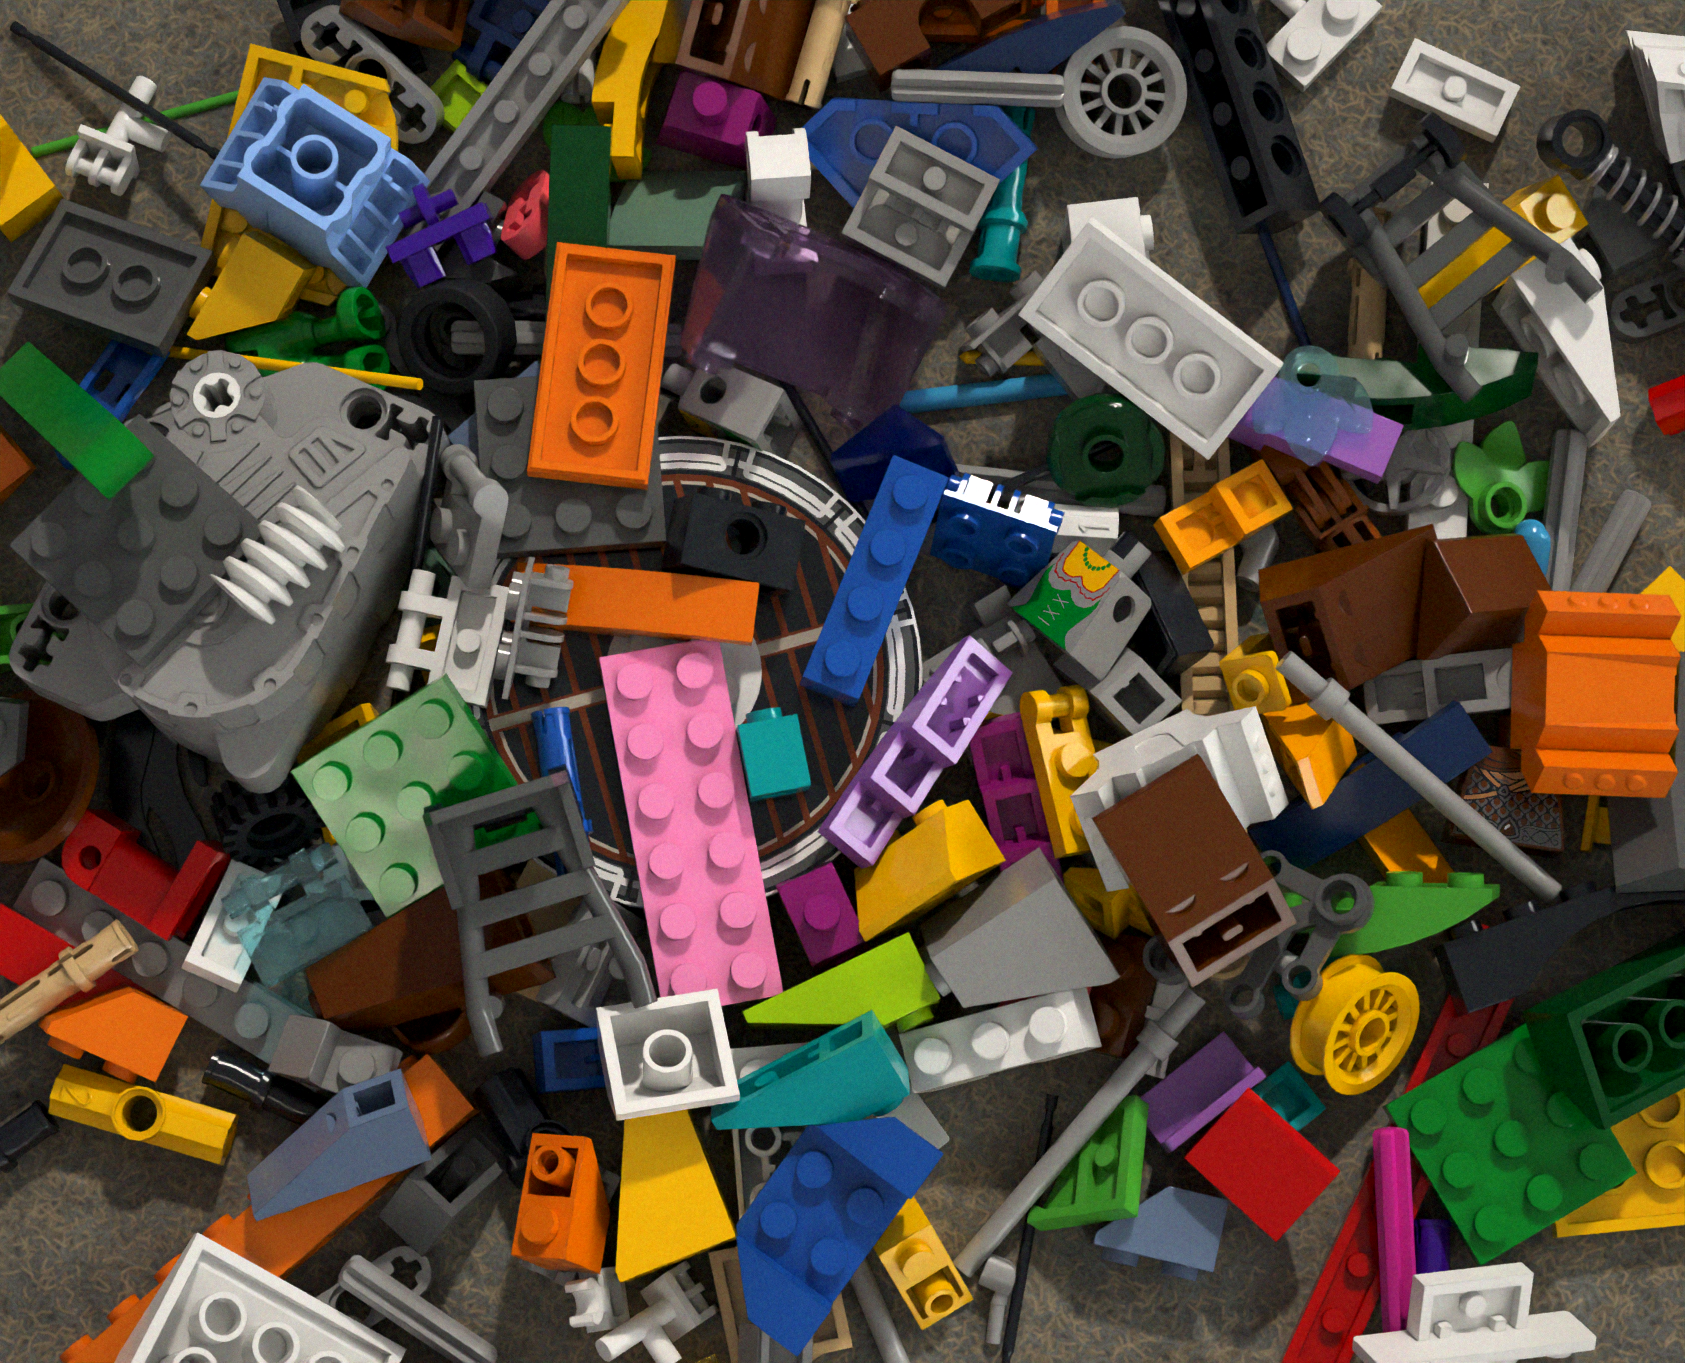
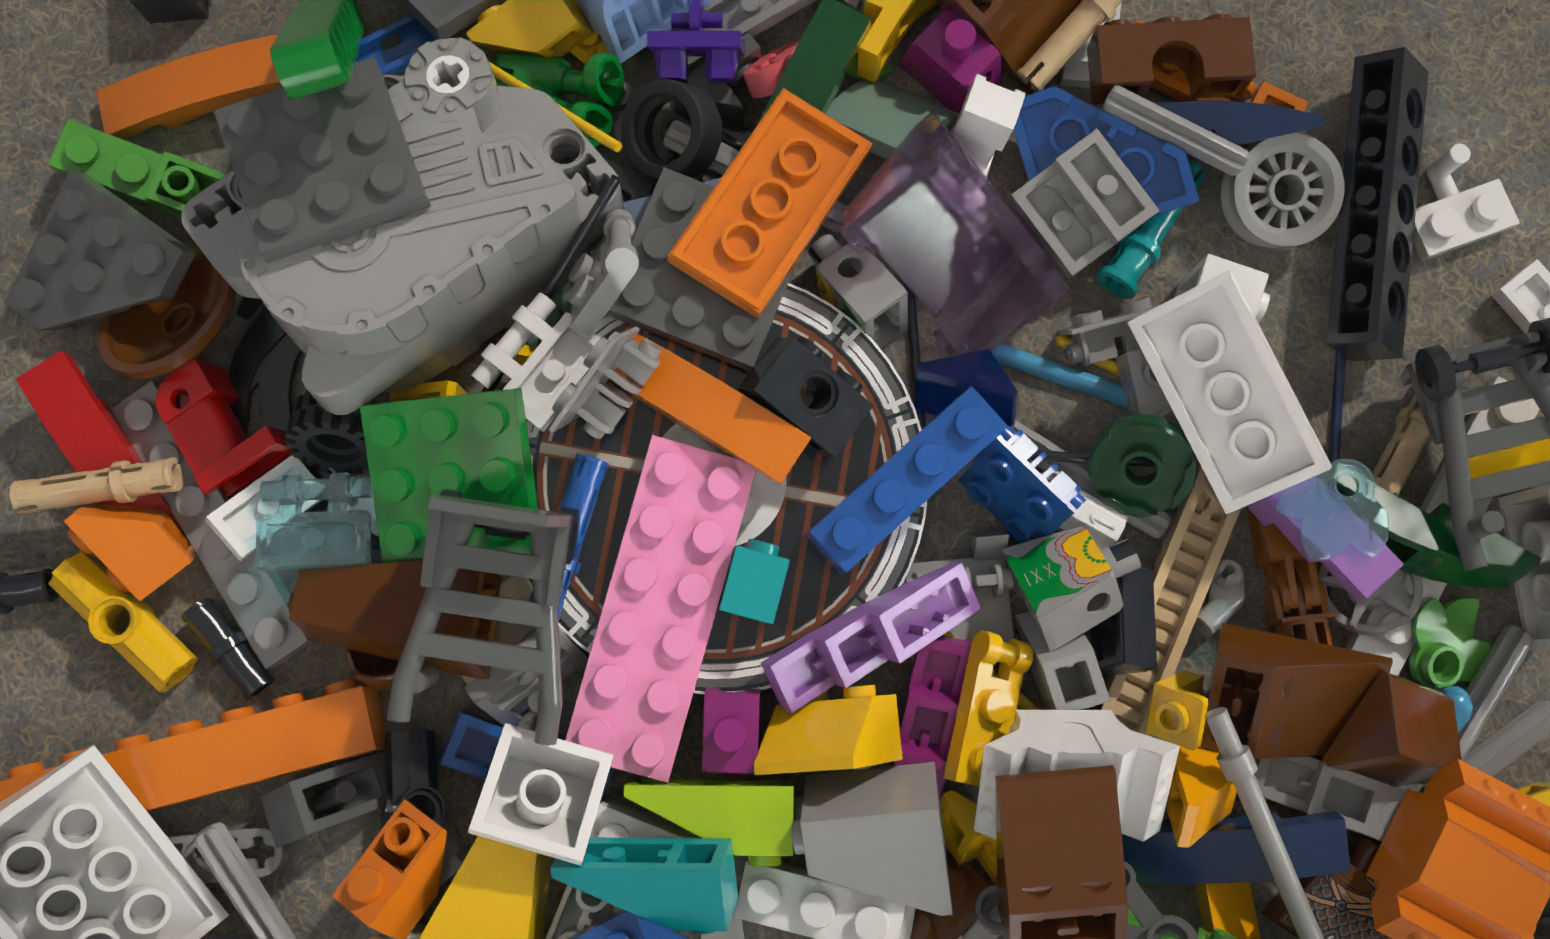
camera: 20 degrees right, 0 degrees up
(282, 556) = (420, 223): white piece -> none
(328, 1057) = (285, 657): light grey slope -> none
(346, 1143) = (254, 731): sand blue slope -> none
(1223, 516) = (1211, 564): light orange slope -> none

